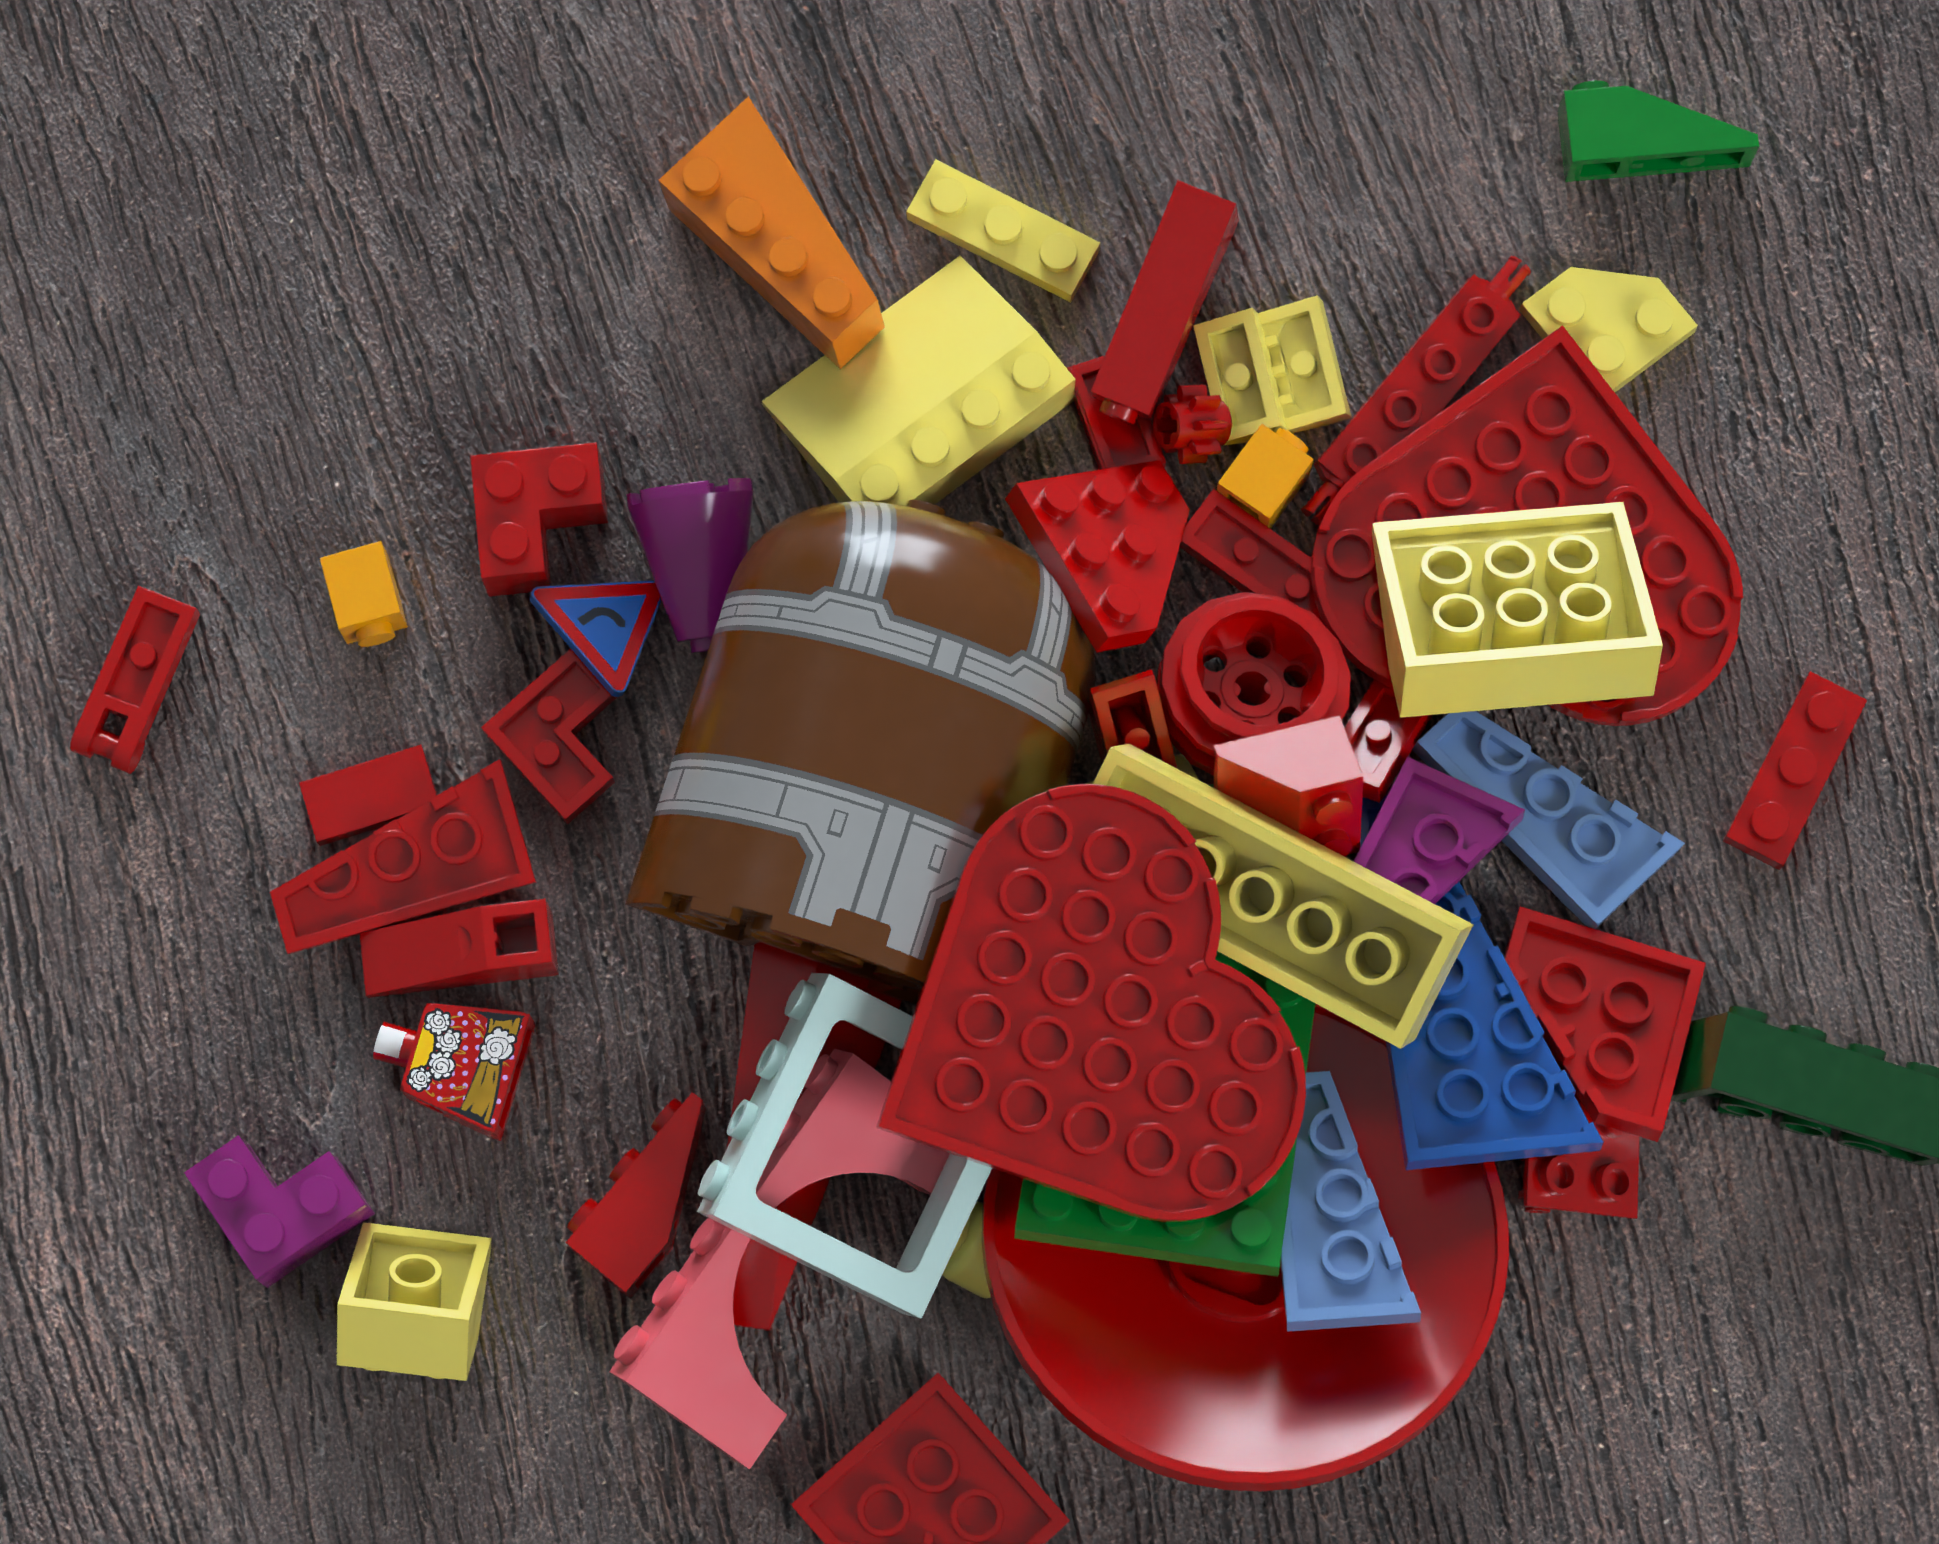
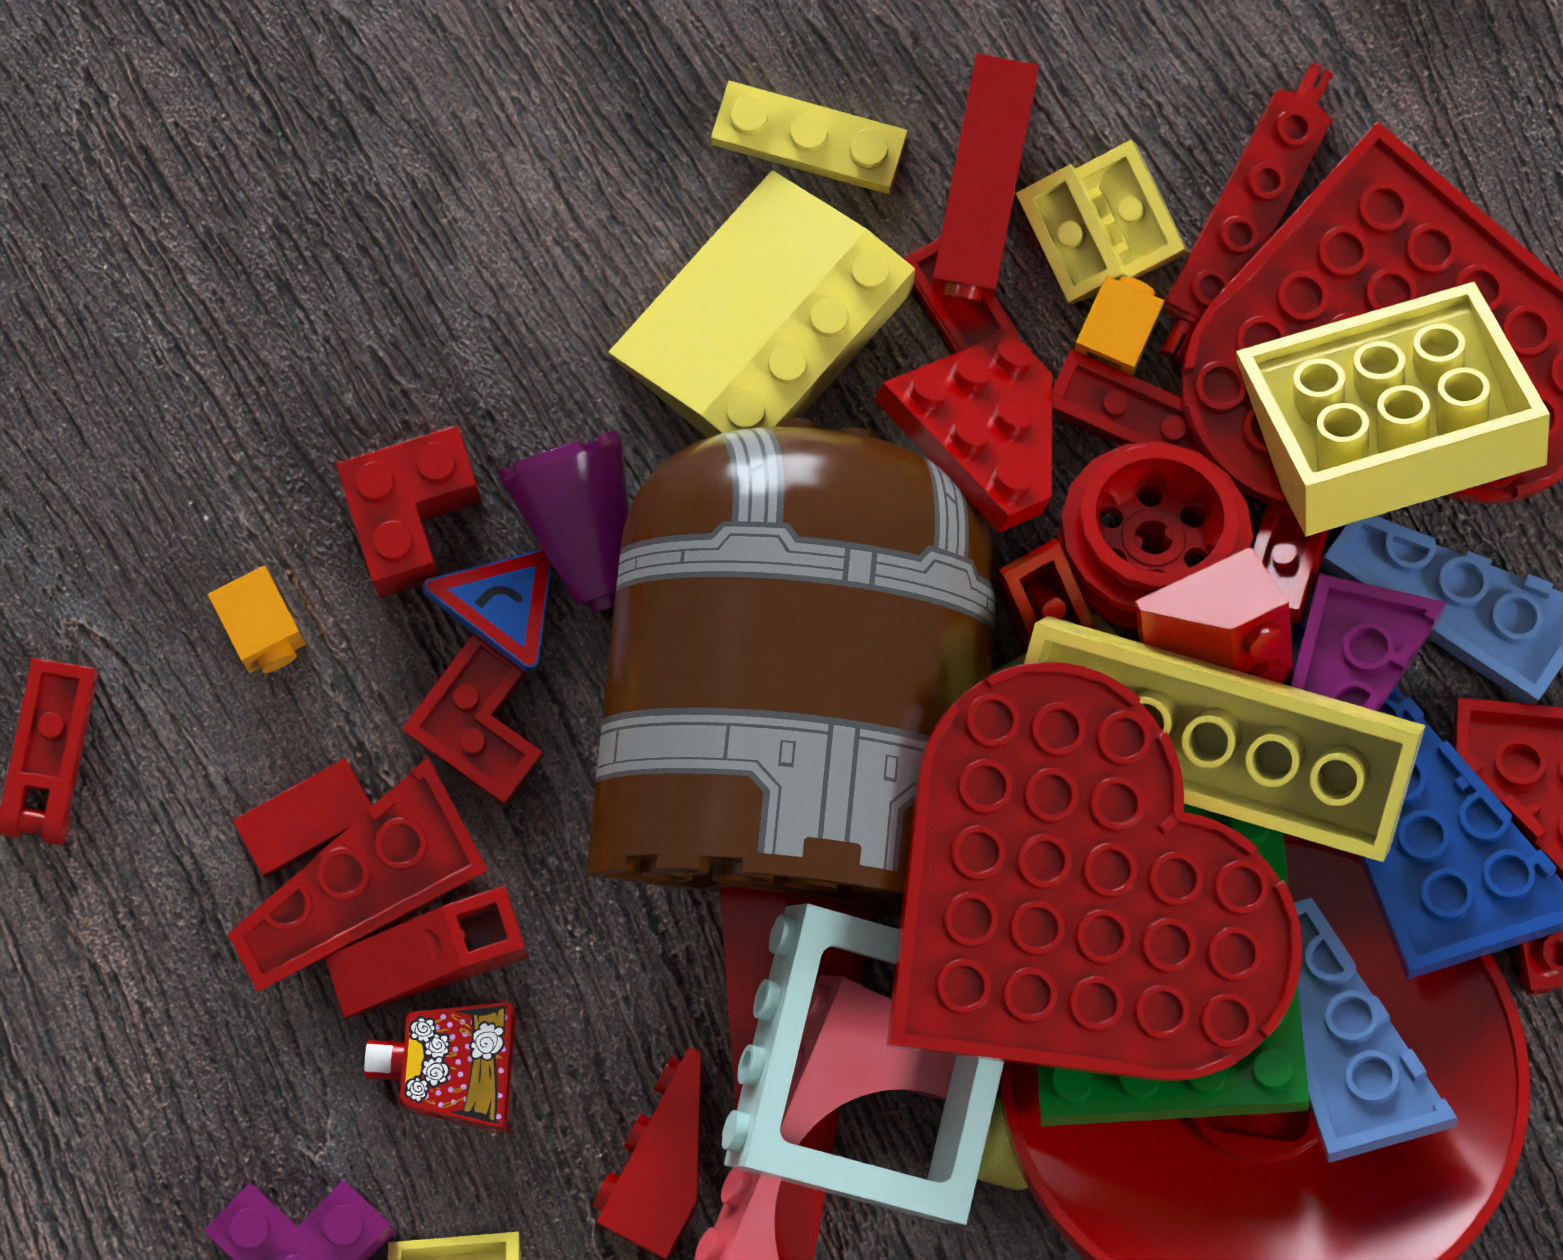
camera: 10 degrees left, 0 degrees up
(766, 226) = (580, 180): orange wedge -> none
(1192, 424) = (1037, 289): red gear -> none
(1613, 317) = (1423, 102): light yellow plate -> none

